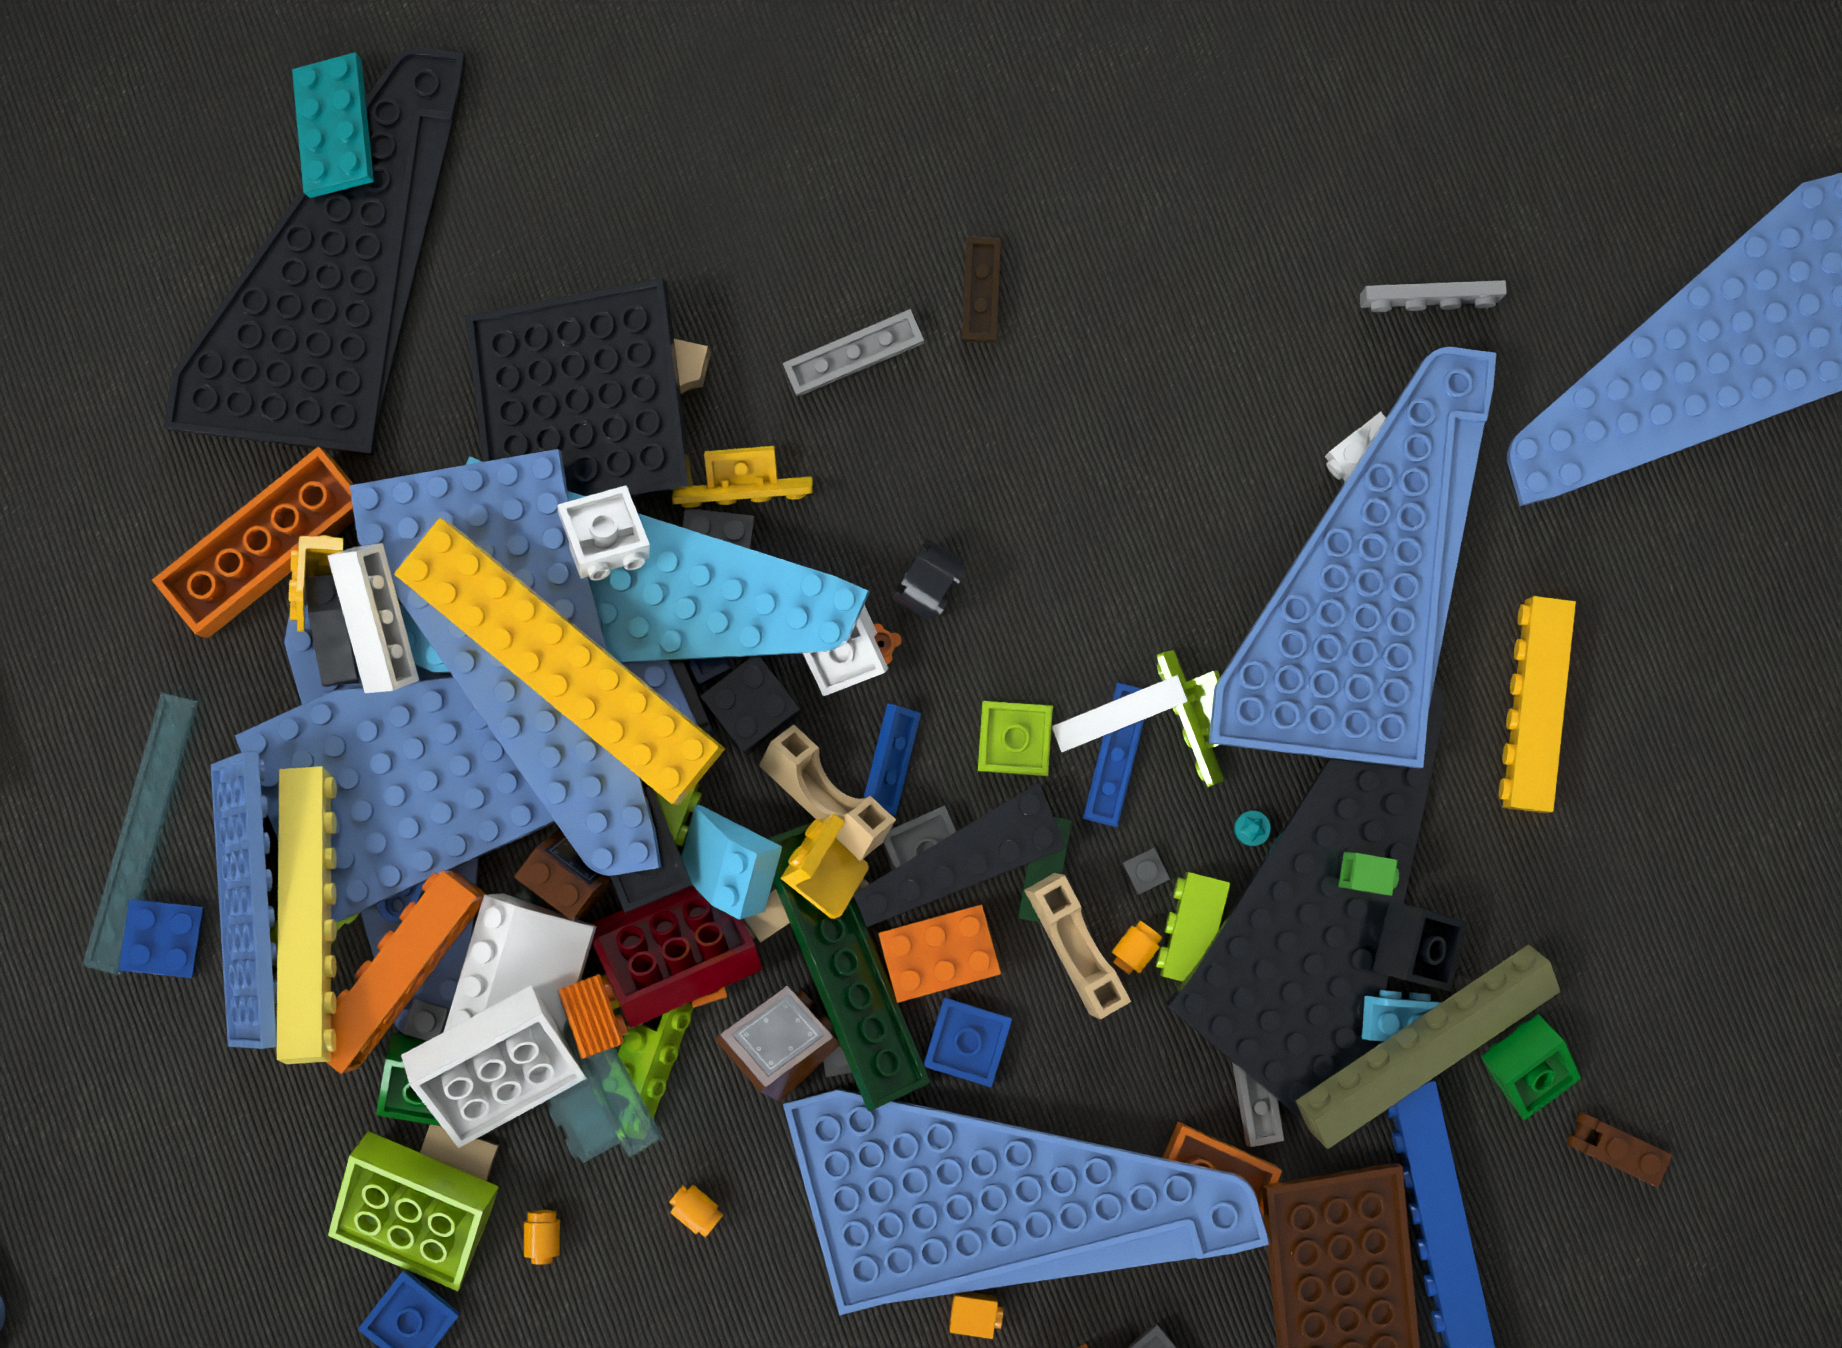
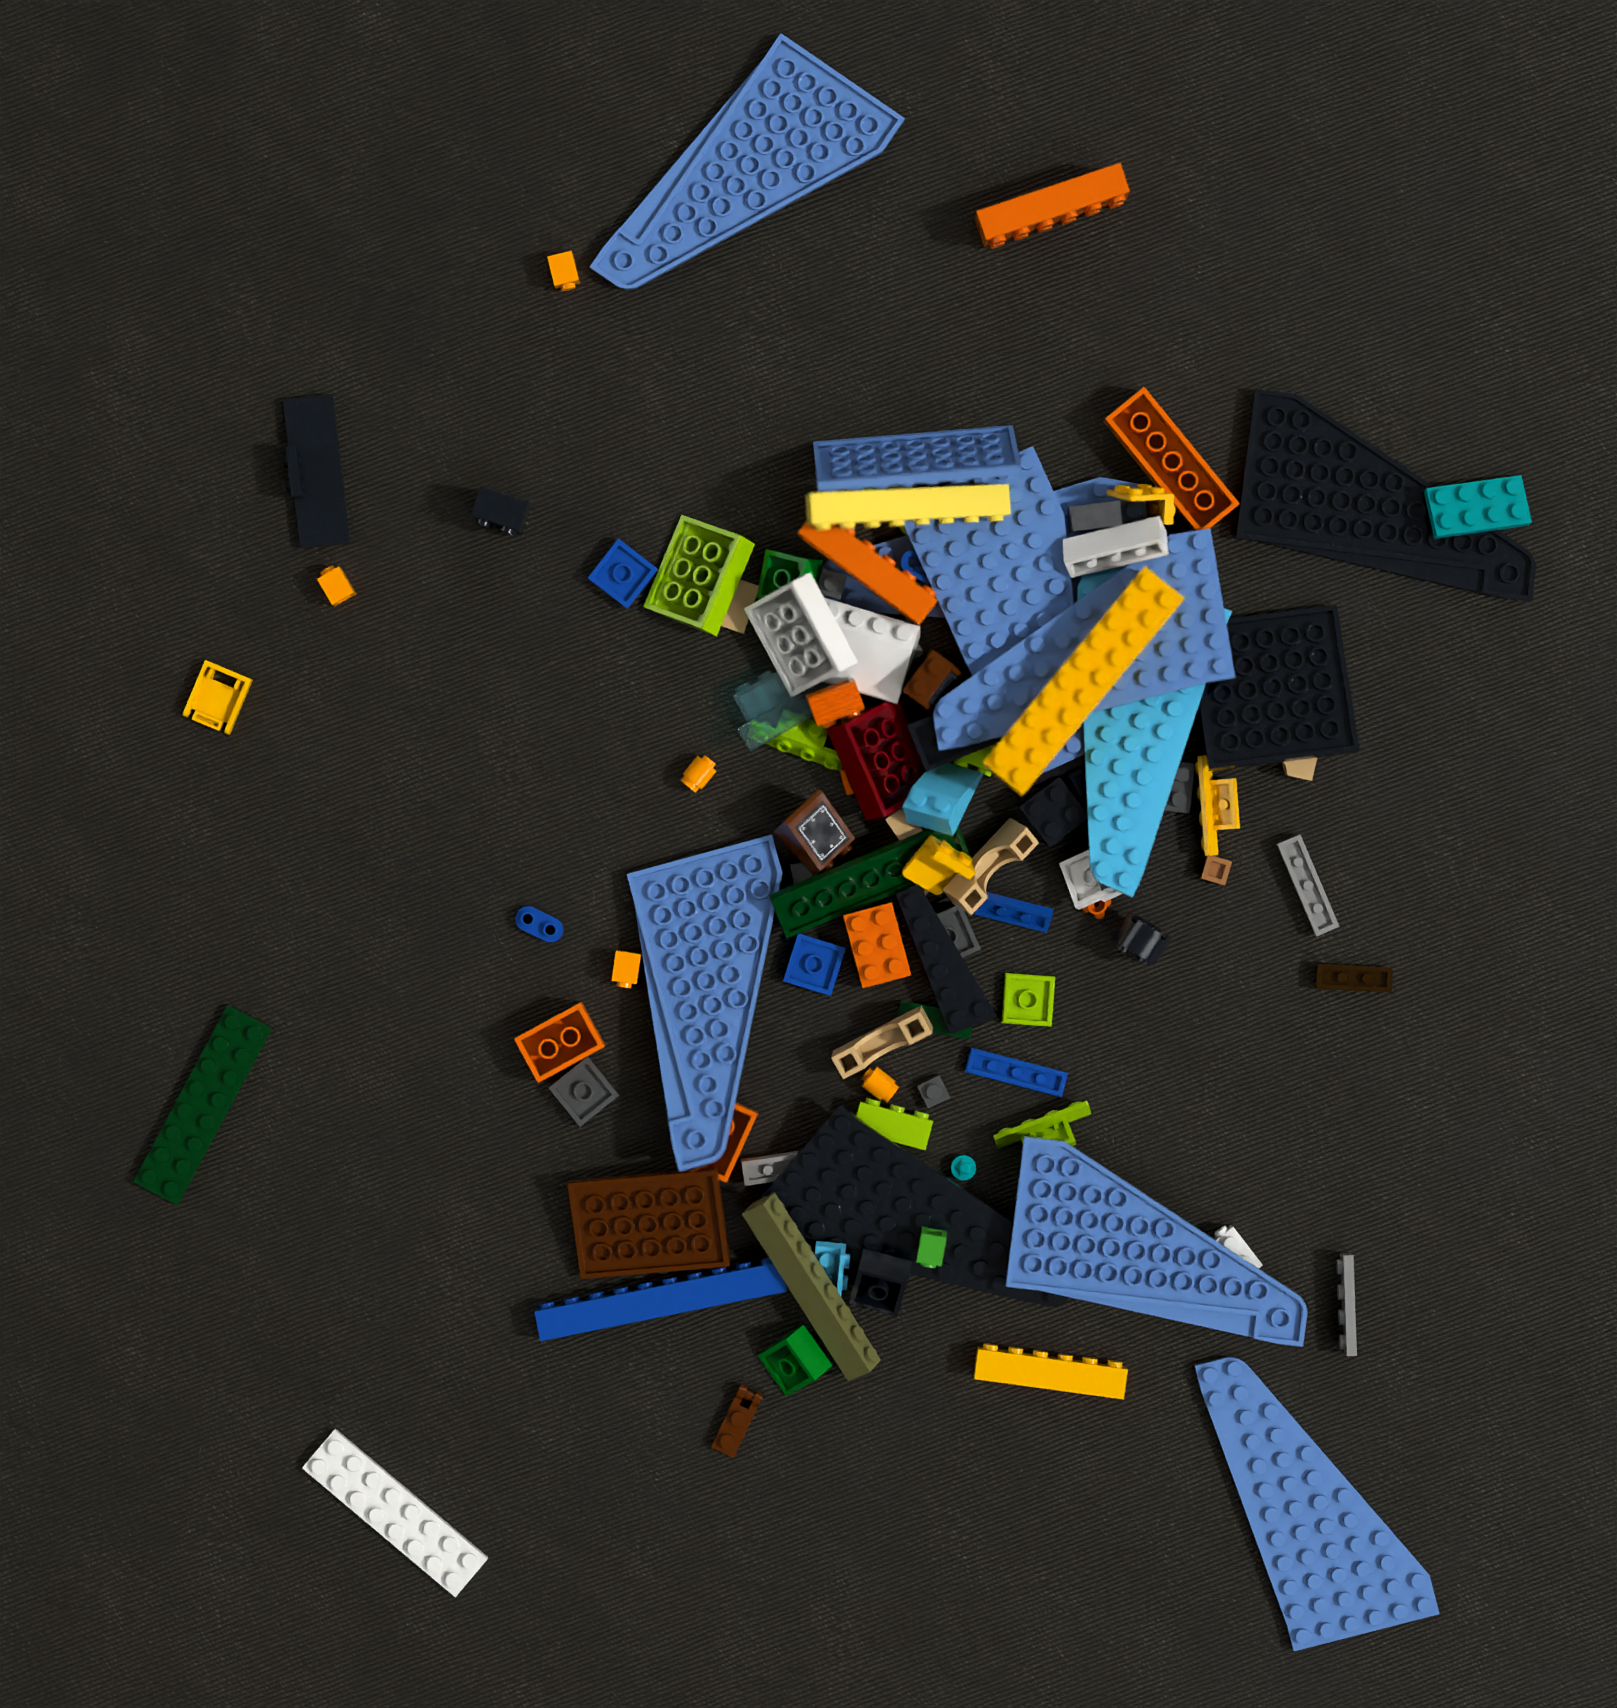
camera: 90 degrees right, 5 degrees up
(140, 829) = (964, 376): clear light blue tile -> none
(161, 938) = (889, 394): blue plate -> none
(541, 1236) = (681, 666): light orange brick -> none
(604, 533) = (1173, 712): white plate -> none
(832, 478) = (1216, 870): none -> medium nougat plate
(1119, 713) = (1045, 1074): white sticker -> none

